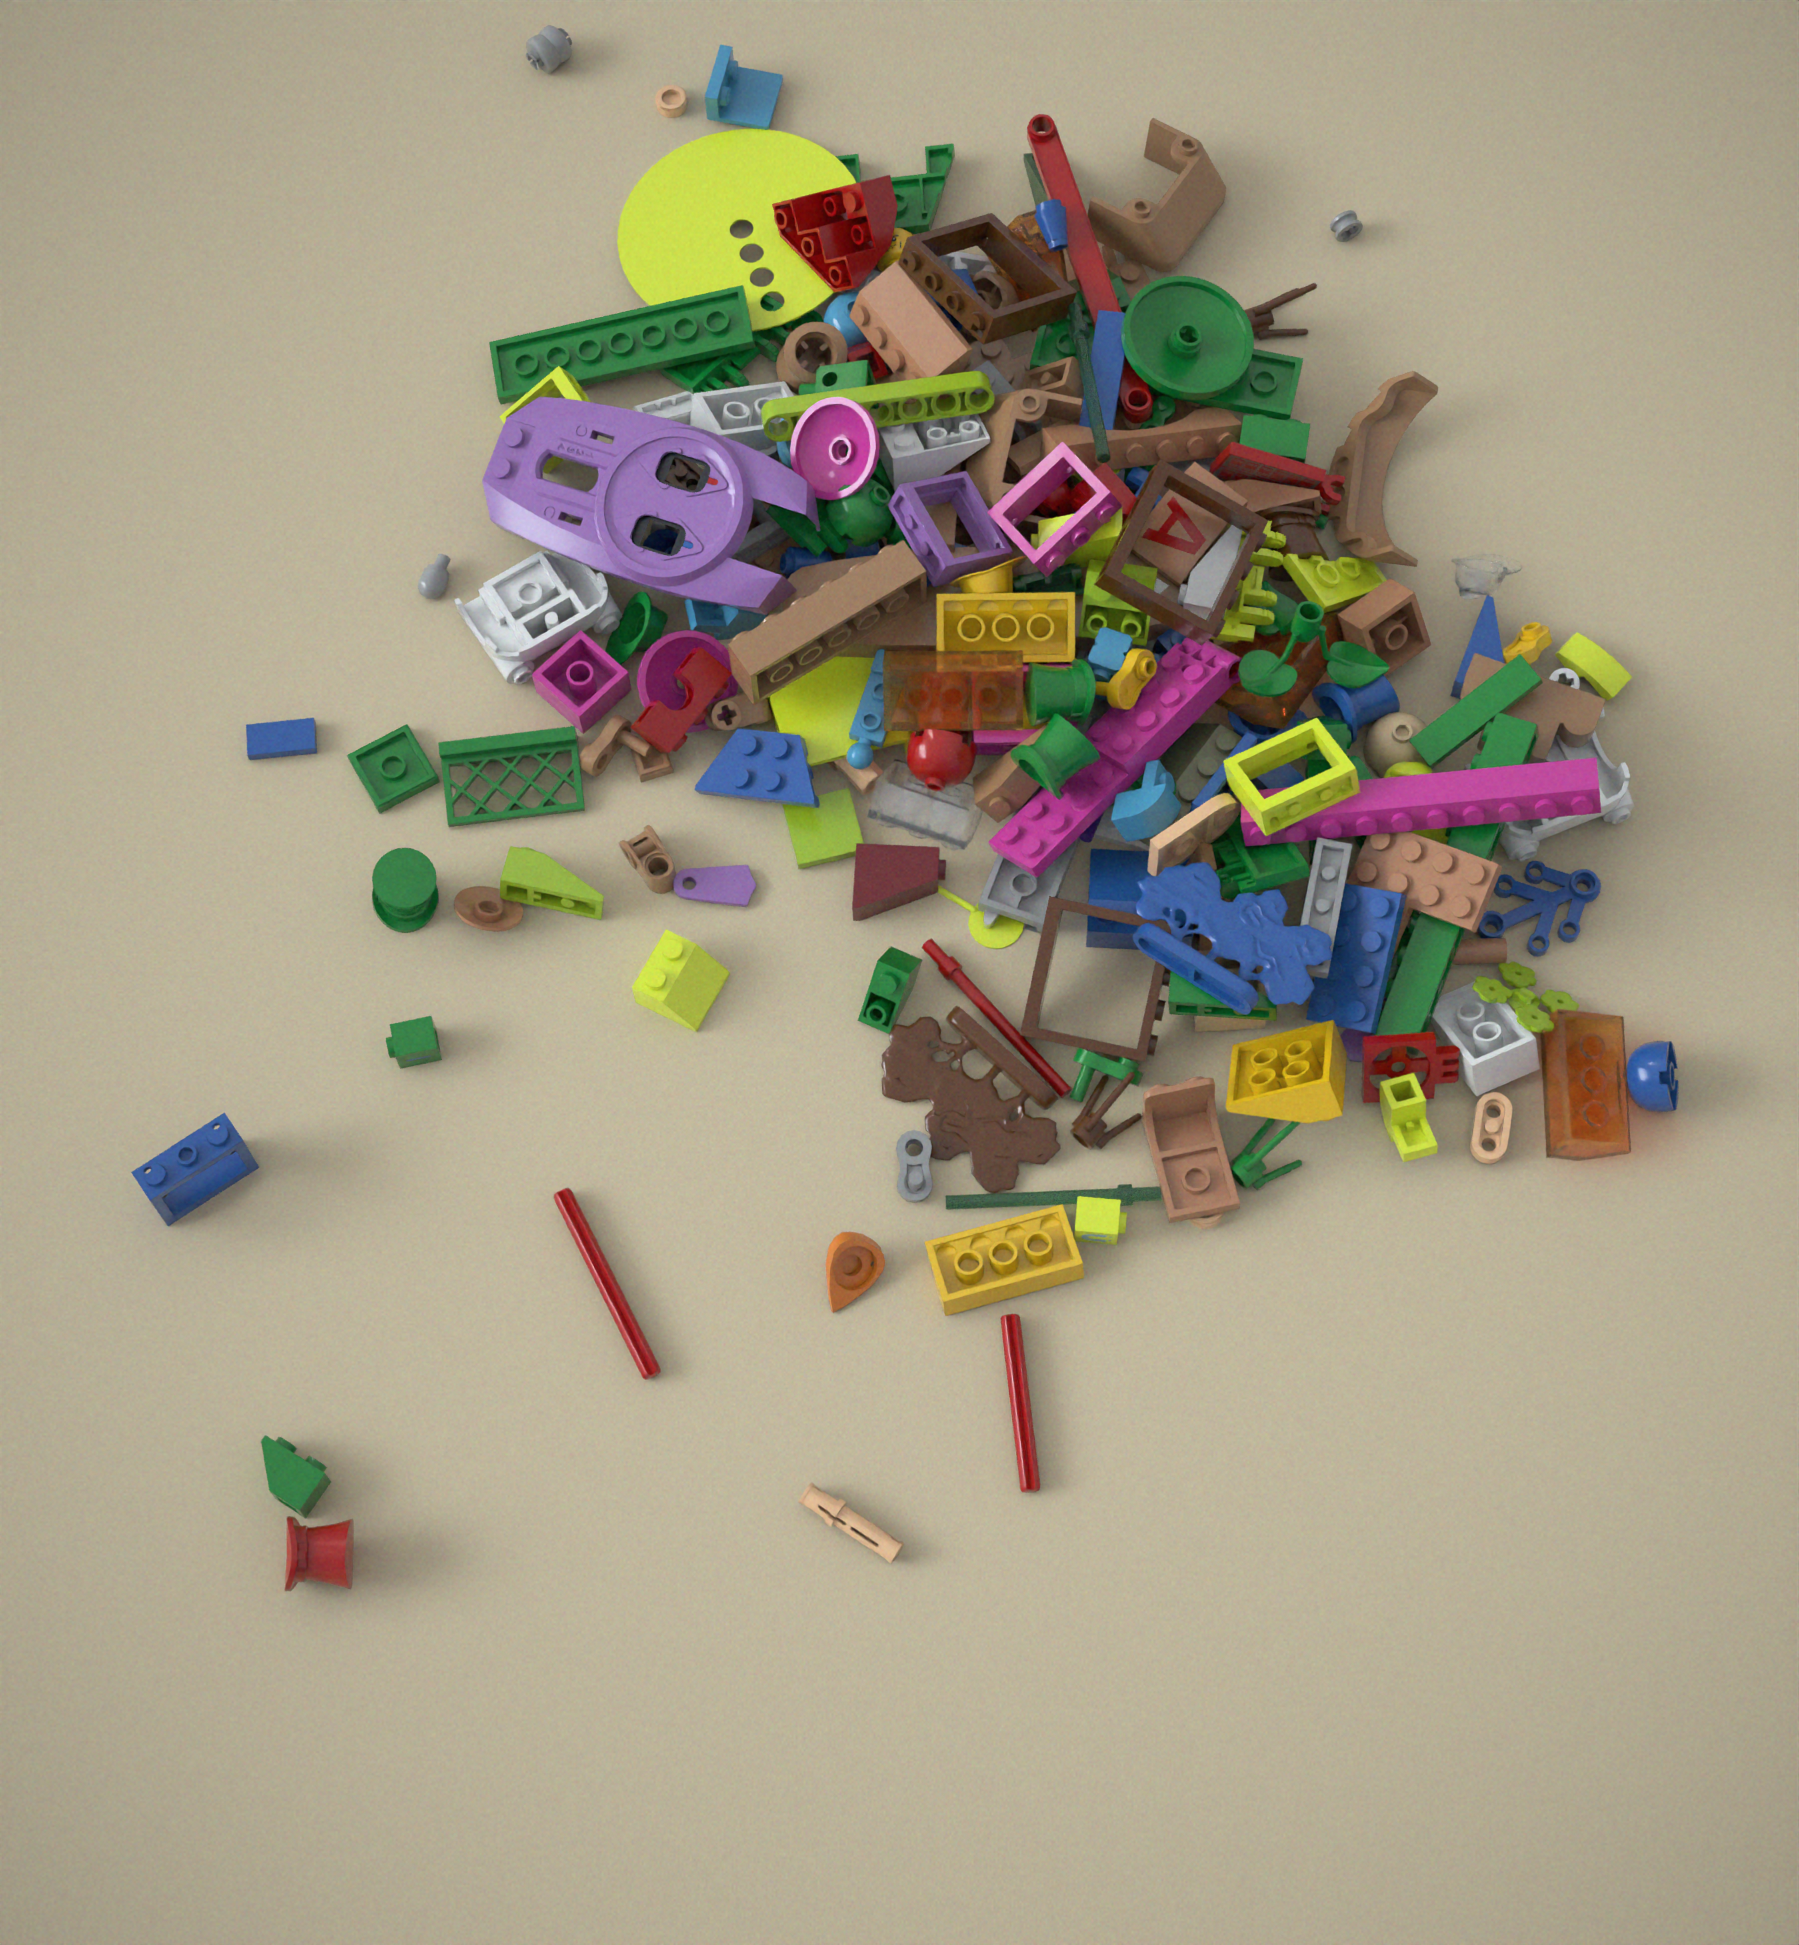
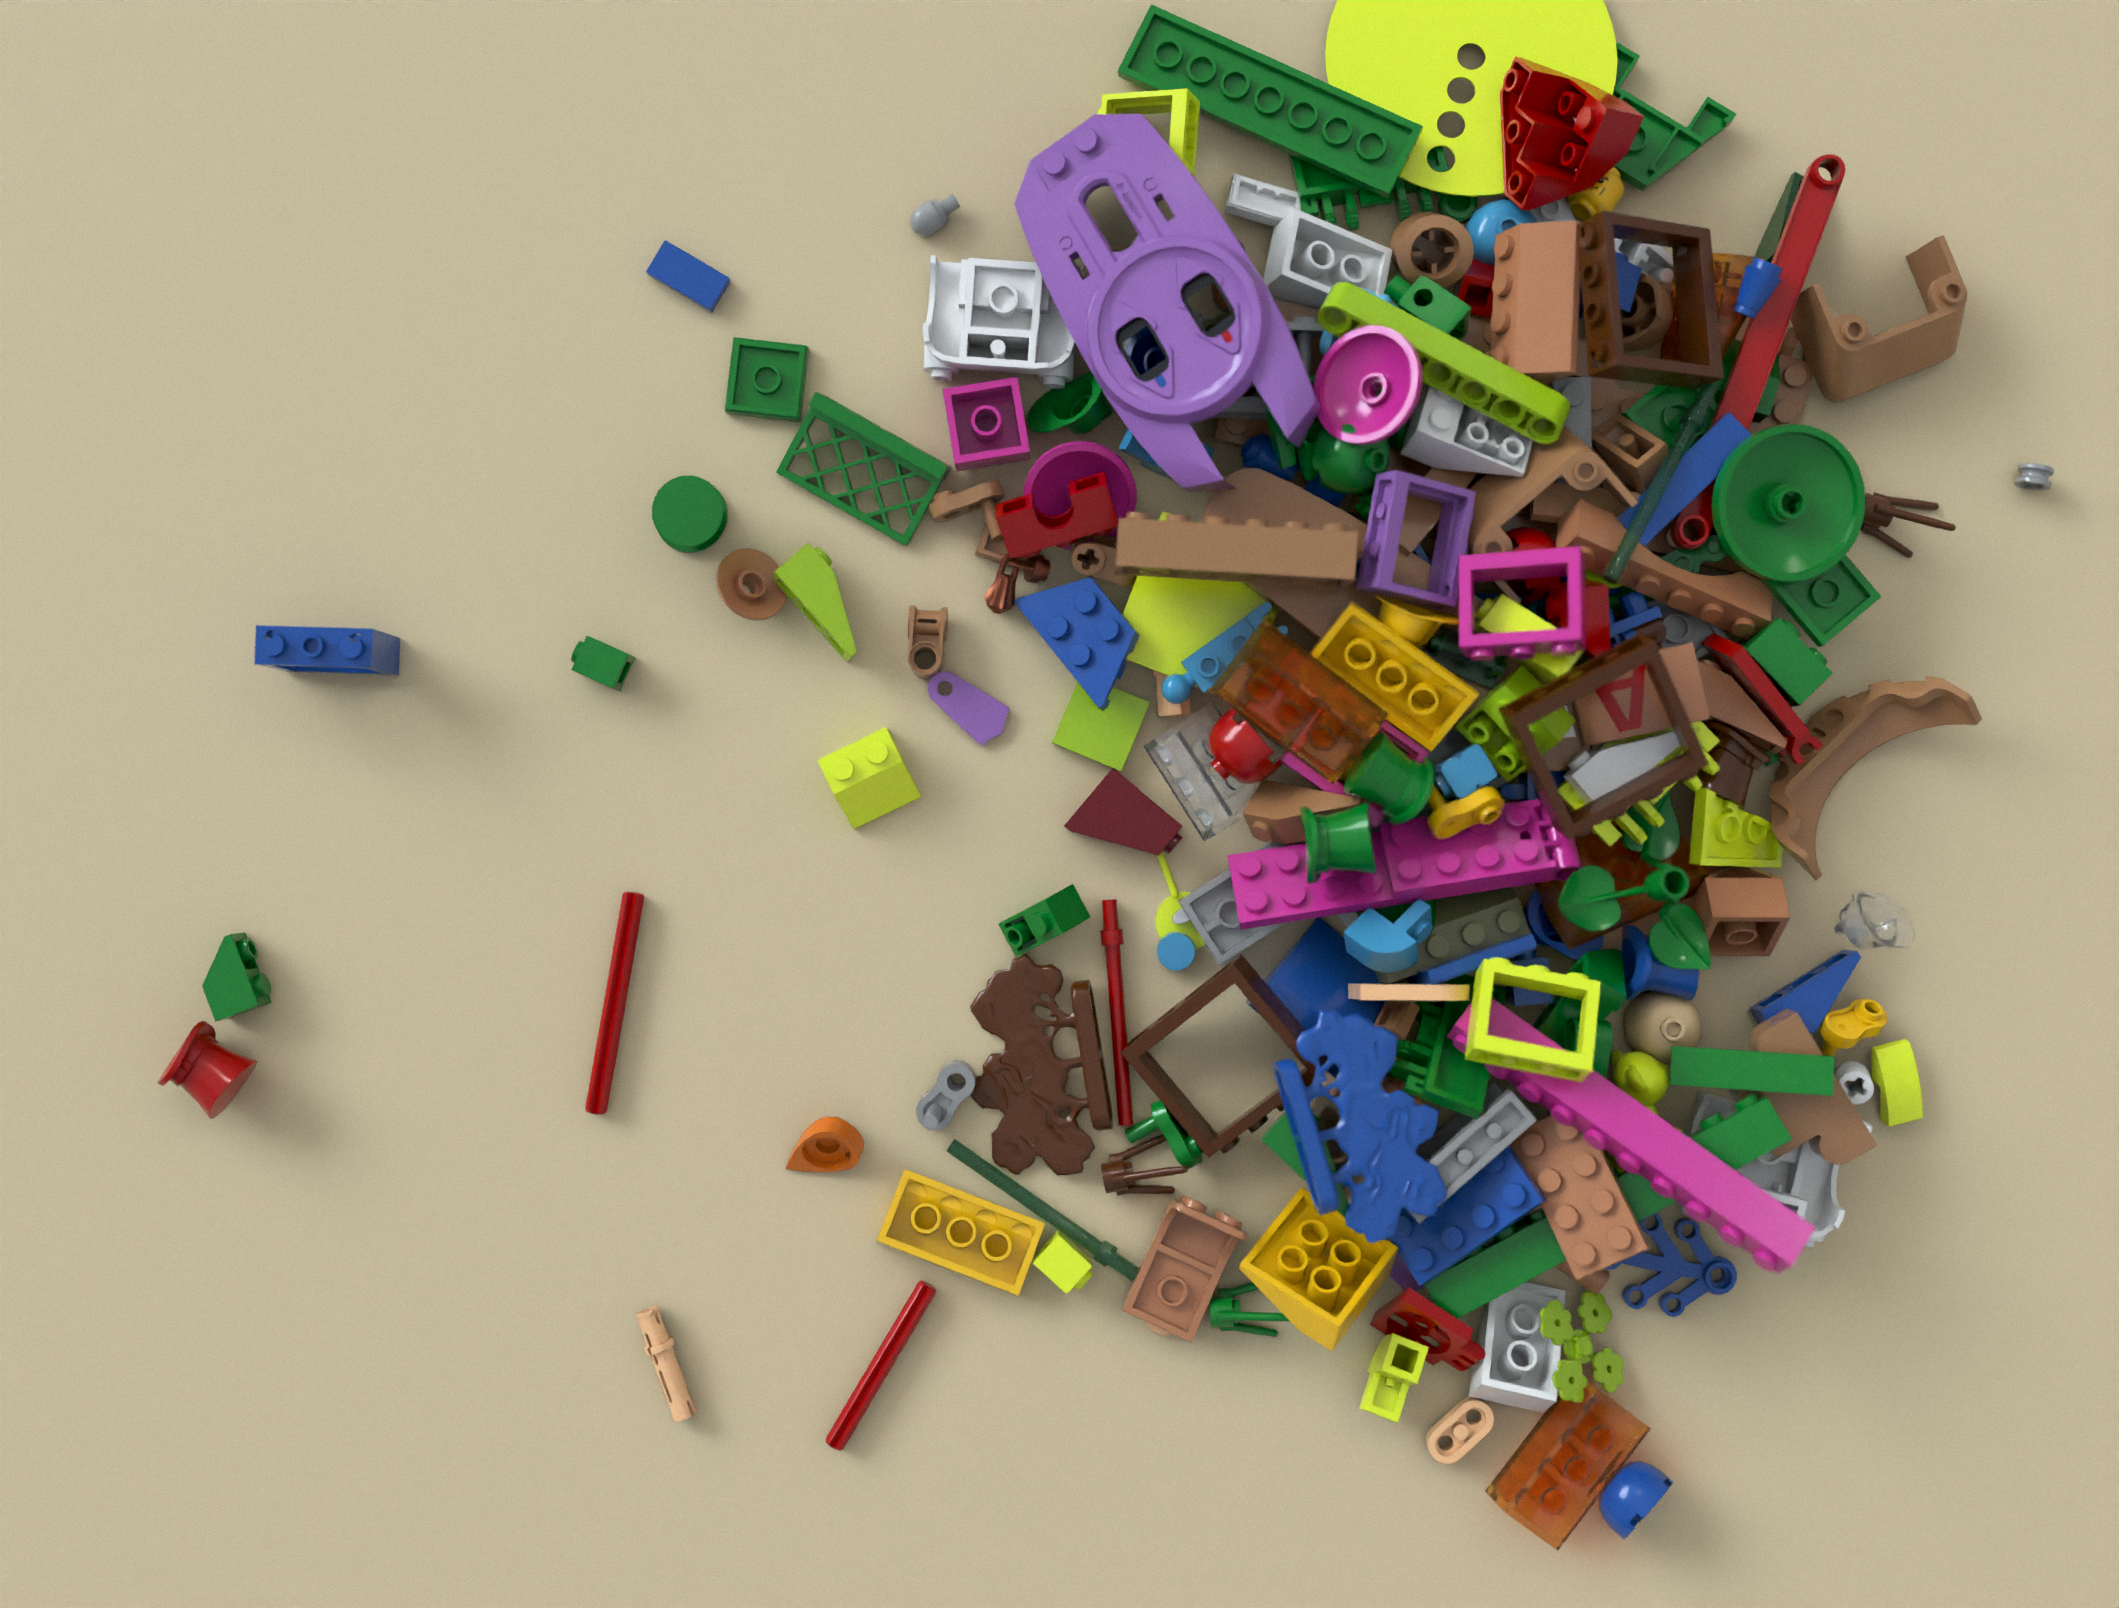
camera: 30 degrees right, 20 degrees up
(680, 789) = (1002, 591): none -> copper piece
(1005, 944) = (1175, 951): none -> dark azure tile

